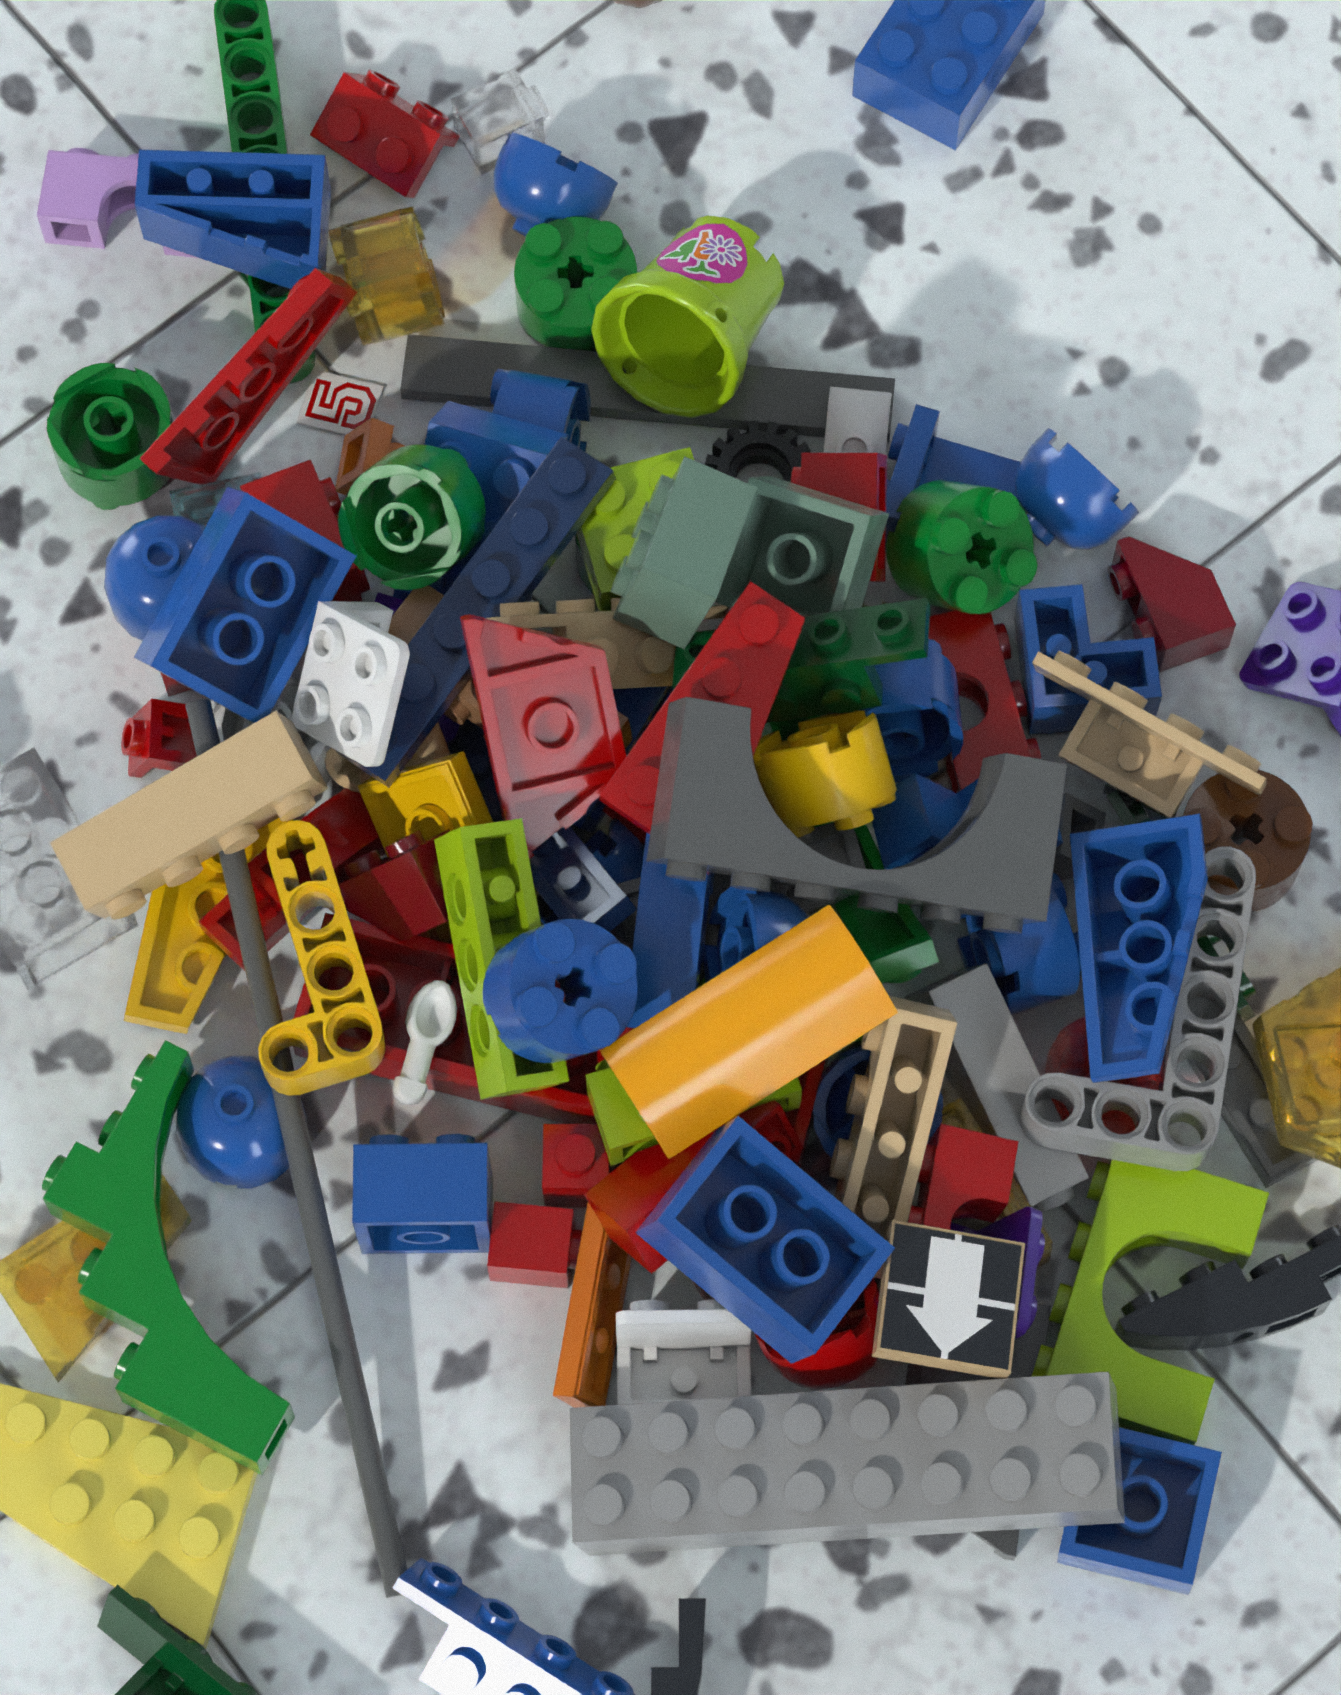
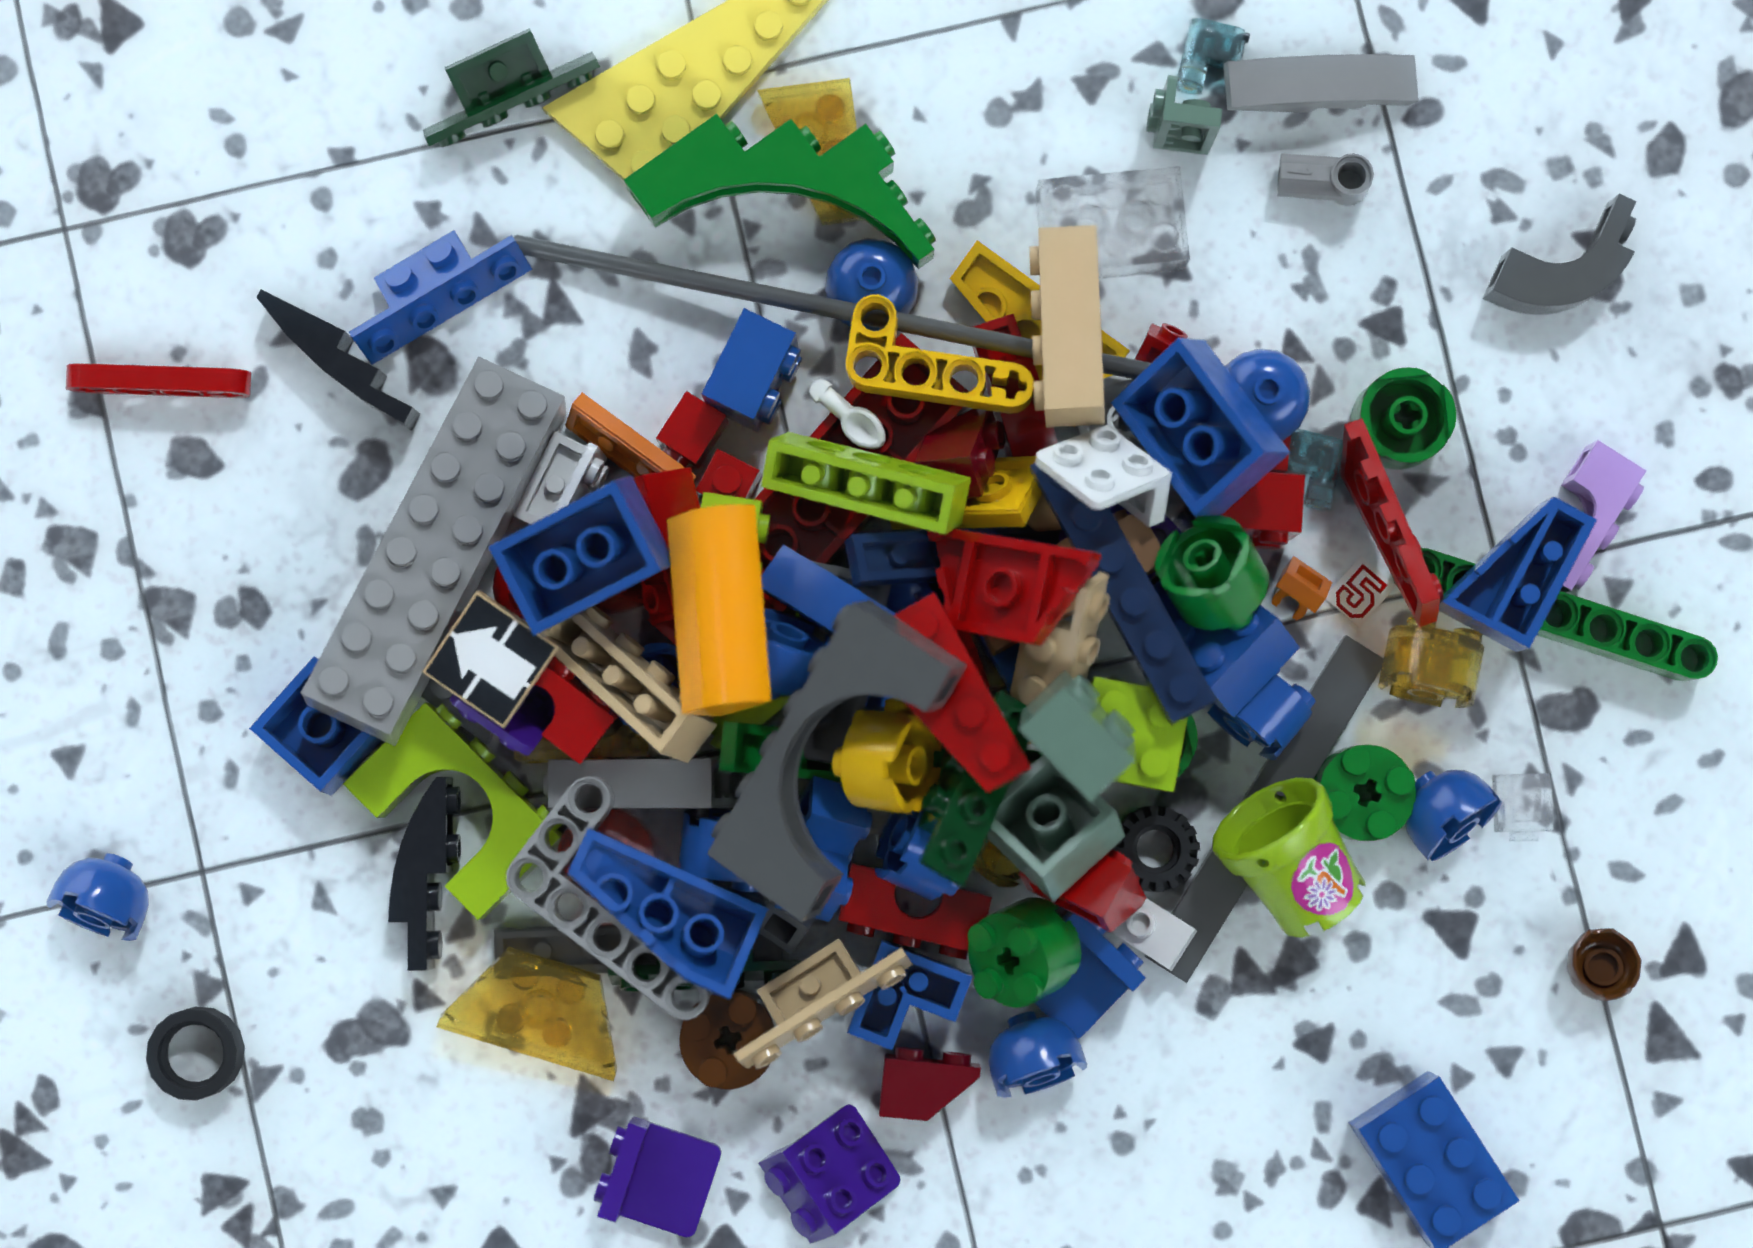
camera: 115 degrees right, 15 degrees up
(383, 131) = (1555, 720): red bracket -> none
(593, 974) = (785, 509): blue brick -> none

